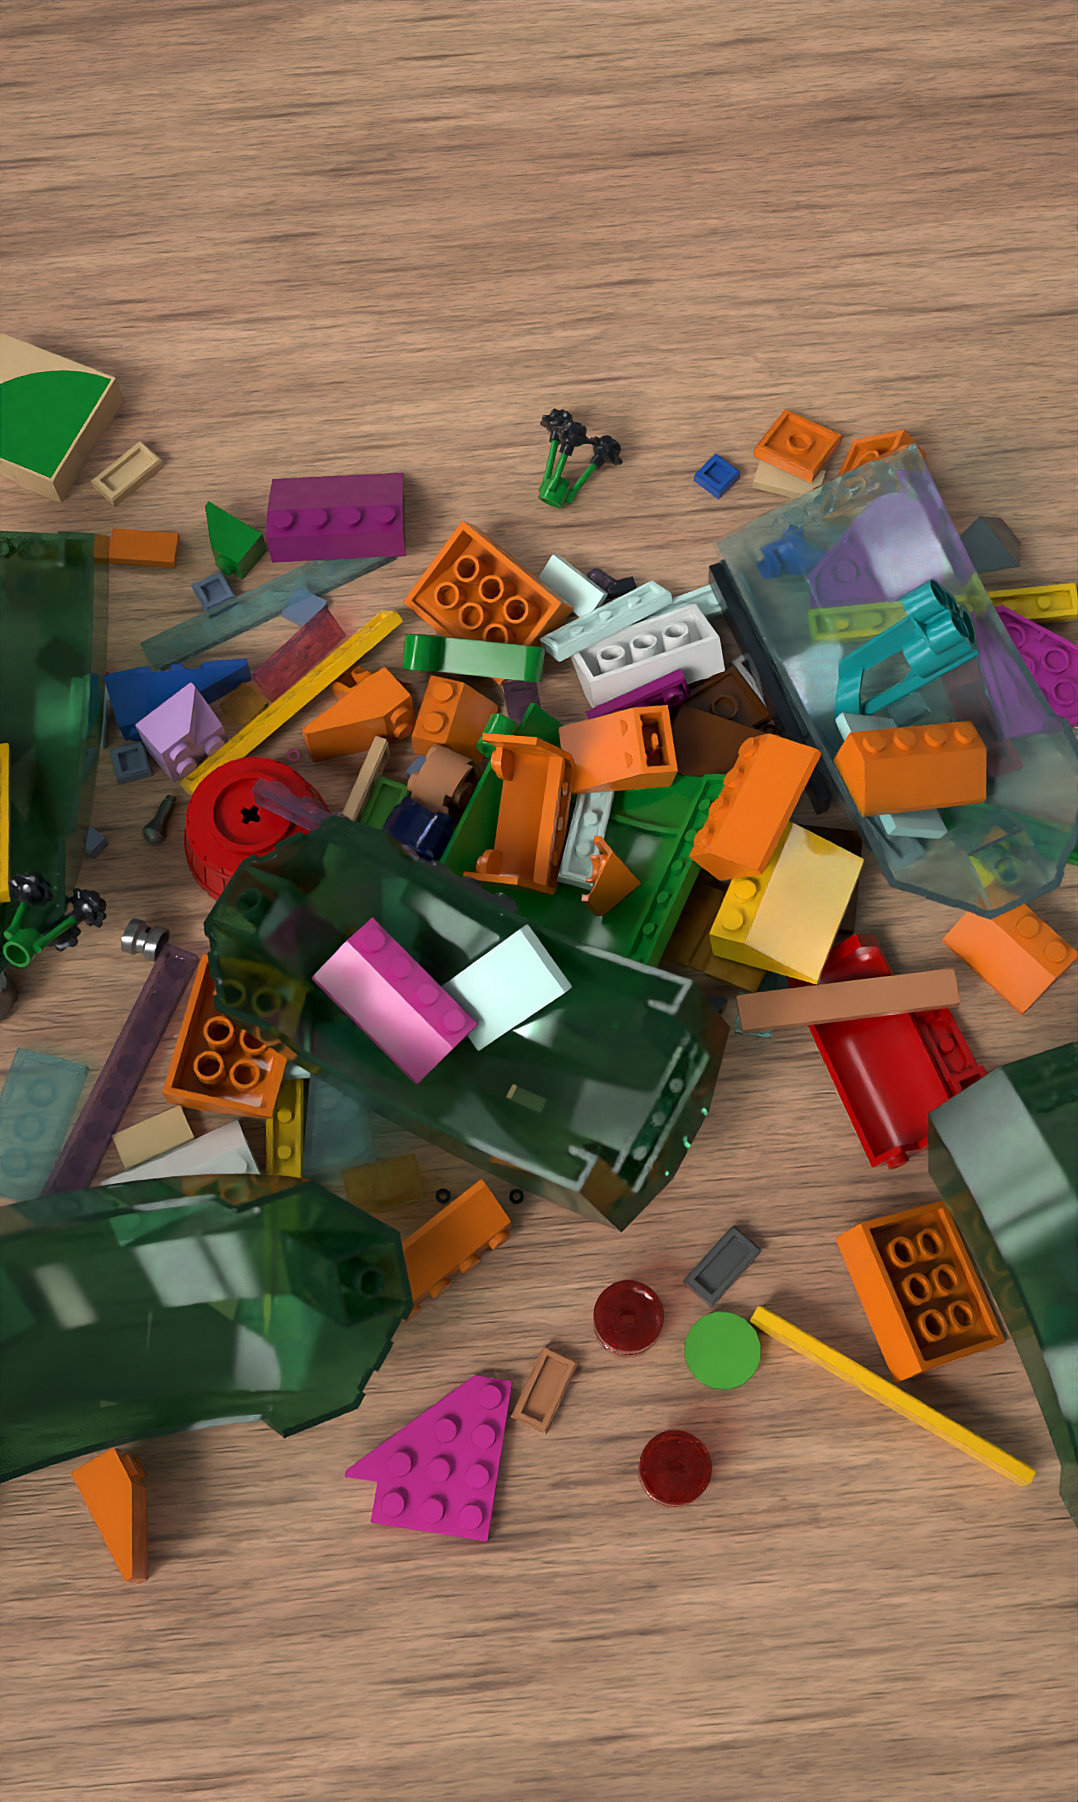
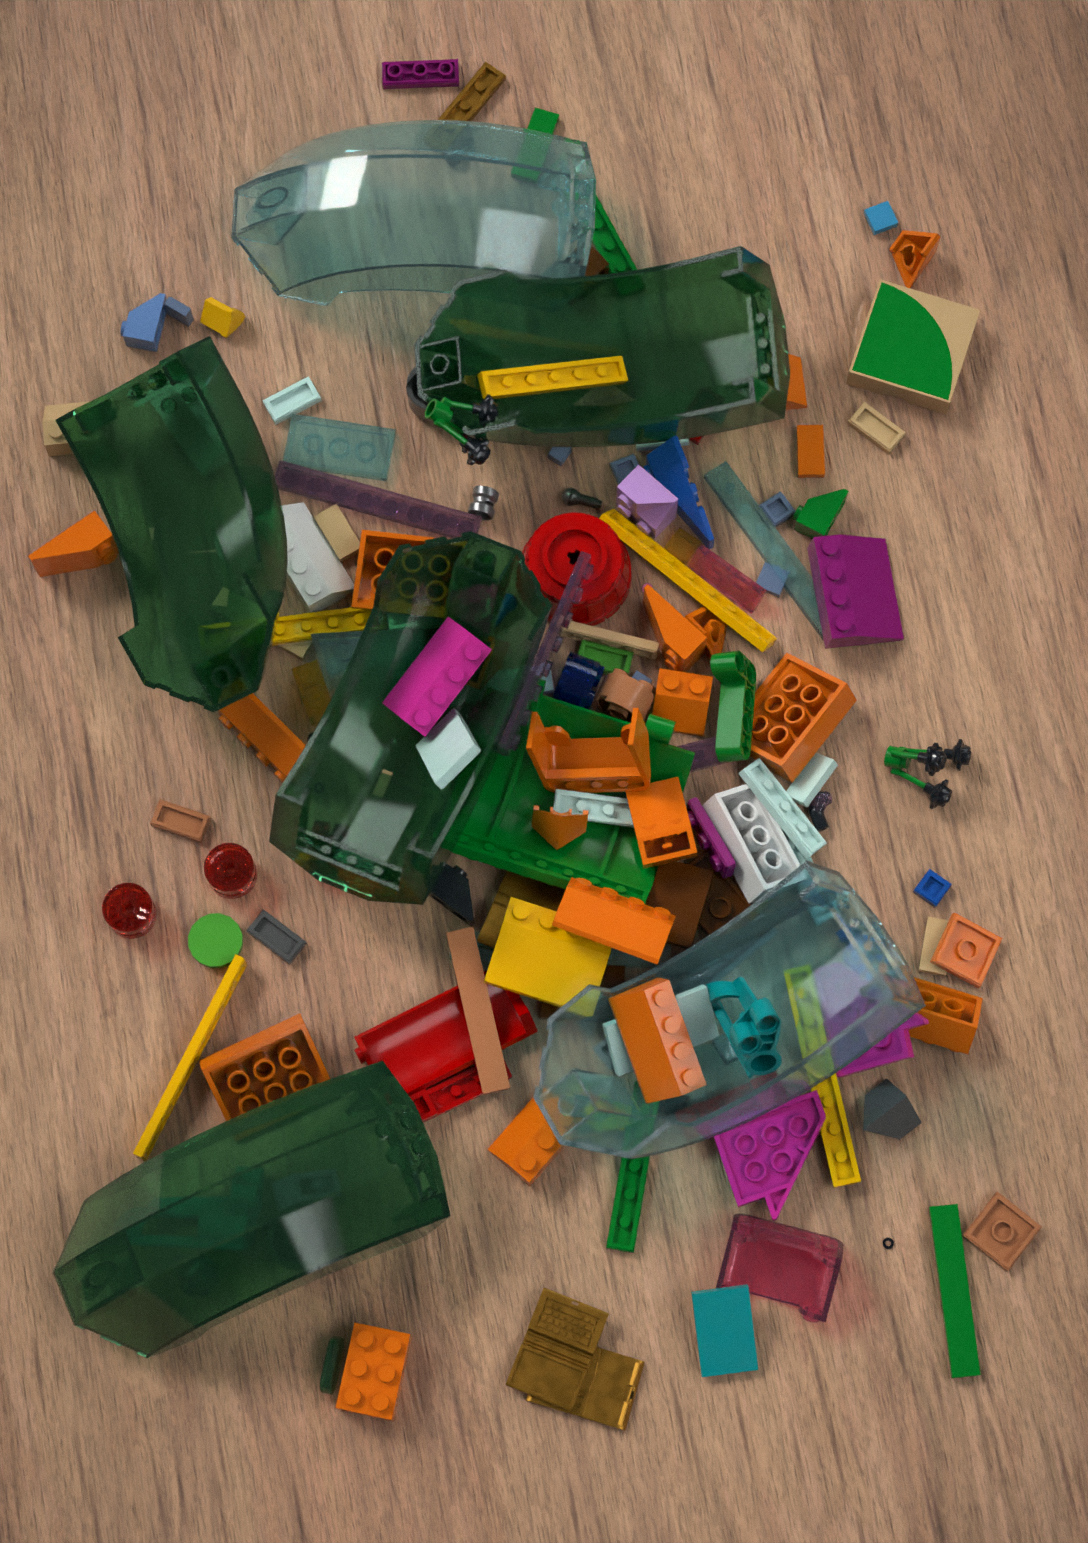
camera: 85 degrees right, 5 degrees up
(443, 1464) = (125, 758): dark pink wing -> none

